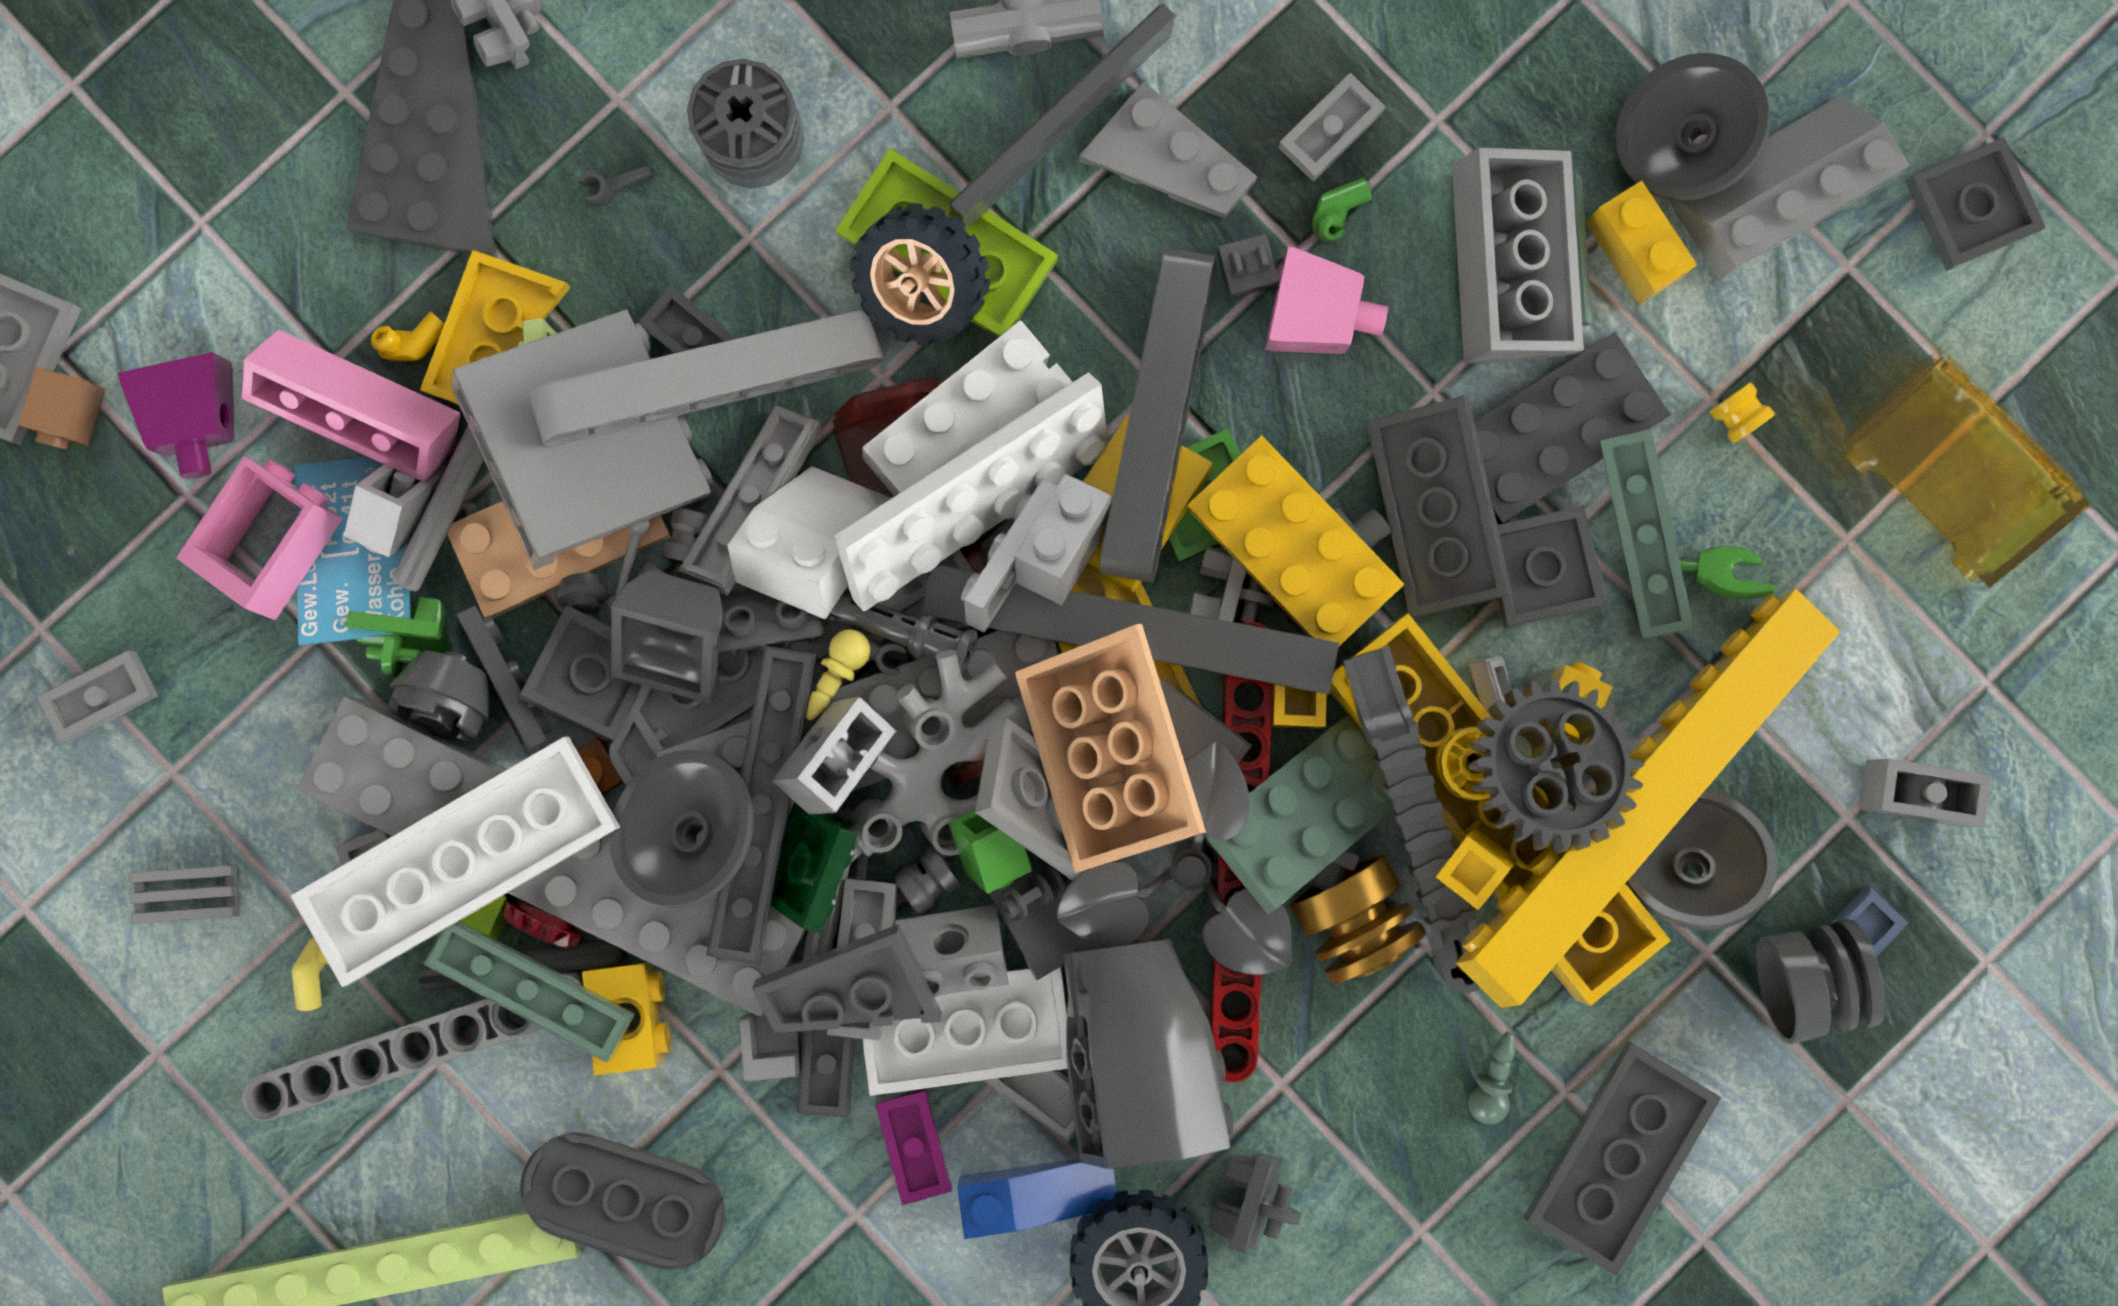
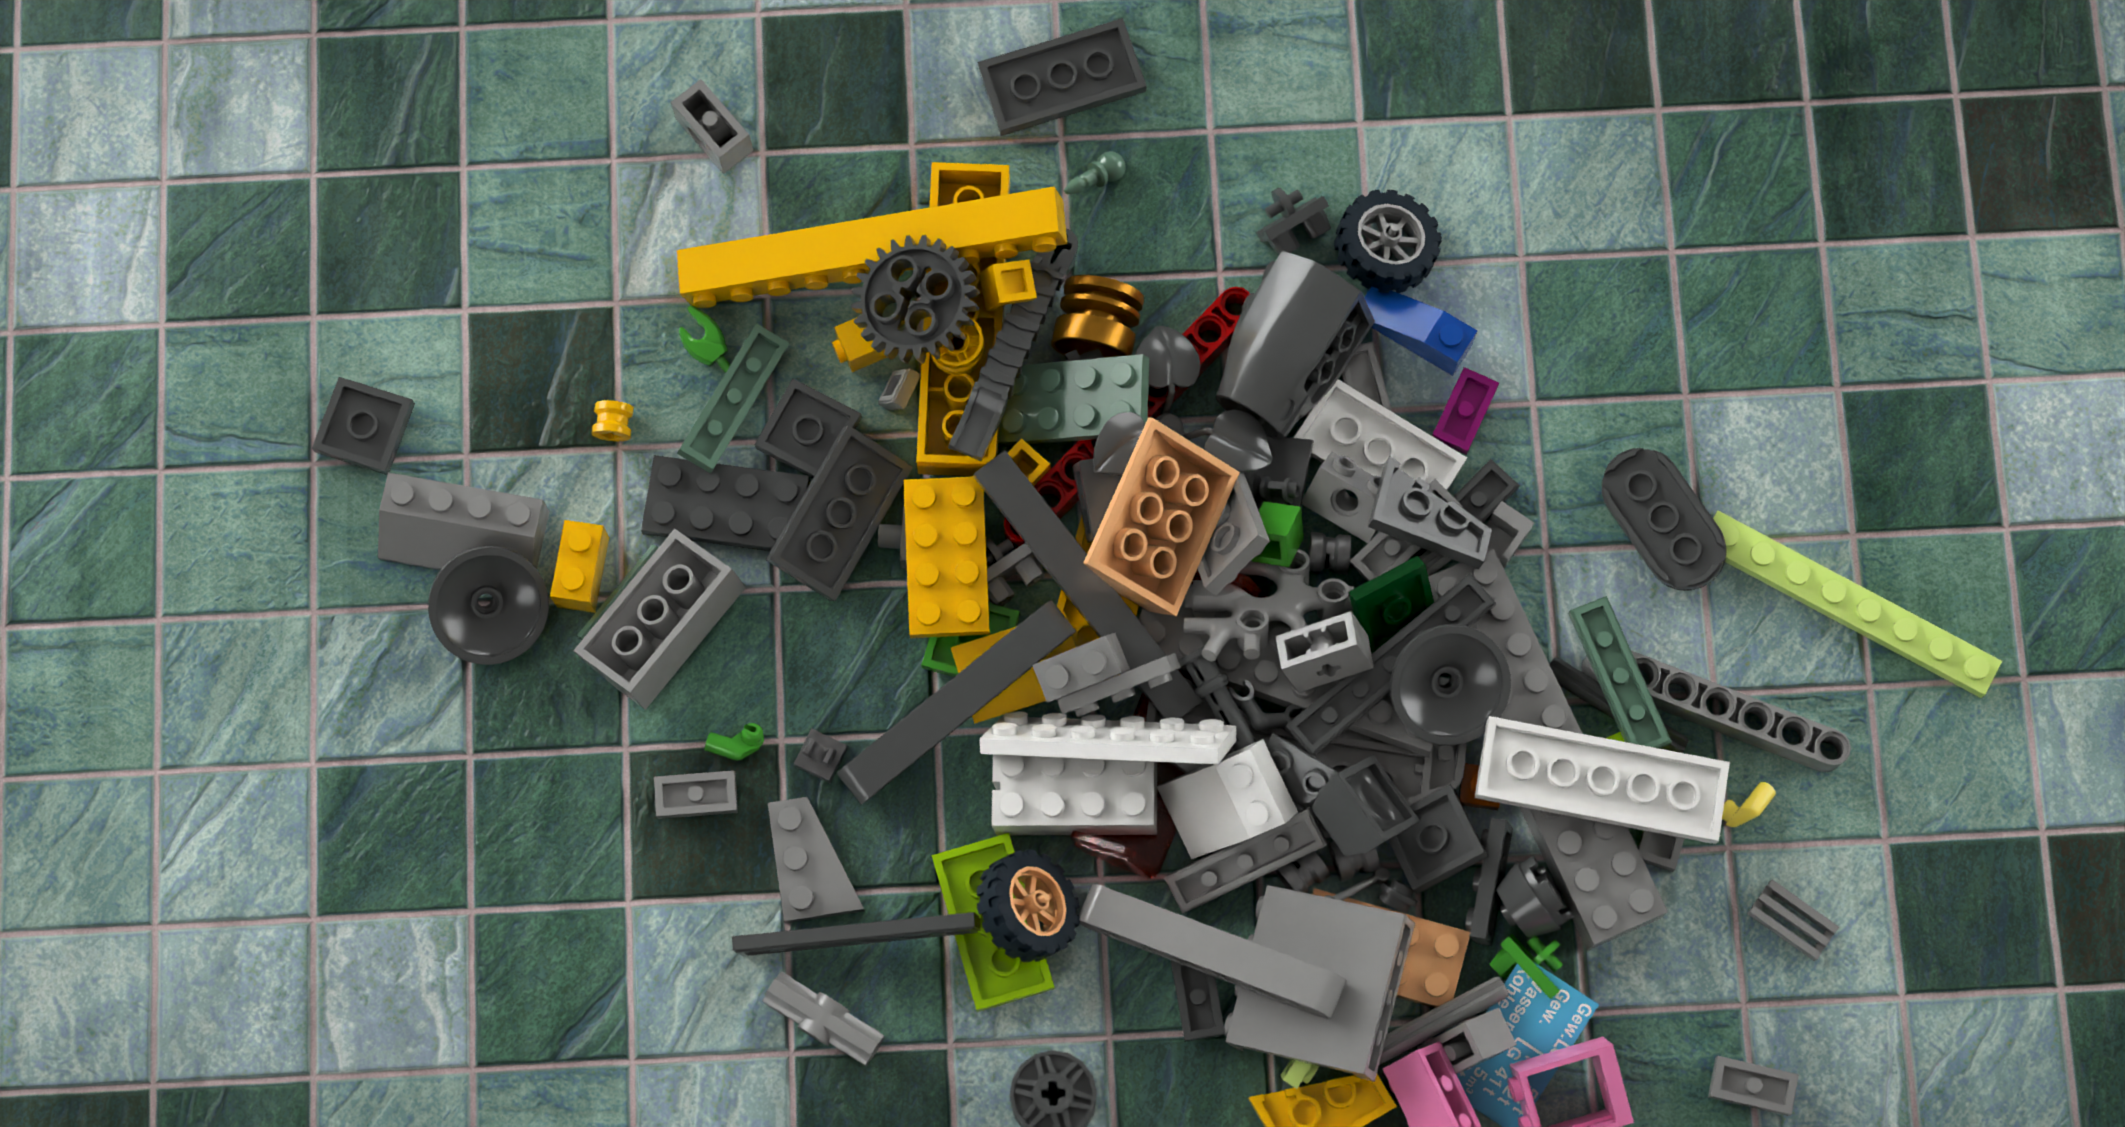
camera: 140 degrees left, 10 degrees down
(541, 924) = (1583, 710): dark red gear -> none
(643, 988) = (1556, 636): yellow brick -> none
(847, 652) = (1265, 712): light yellow bar -> none
(1319, 307) = (803, 691): bright pink torso -> none
(1728, 854) = (856, 173): dark grey dish -> none
(1820, 981) = (864, 73): dark grey wheel -> none
(1875, 917) = (805, 87): sand blue tile -> none
(1966, 468) = (513, 281): clear yellow windscreen -> none

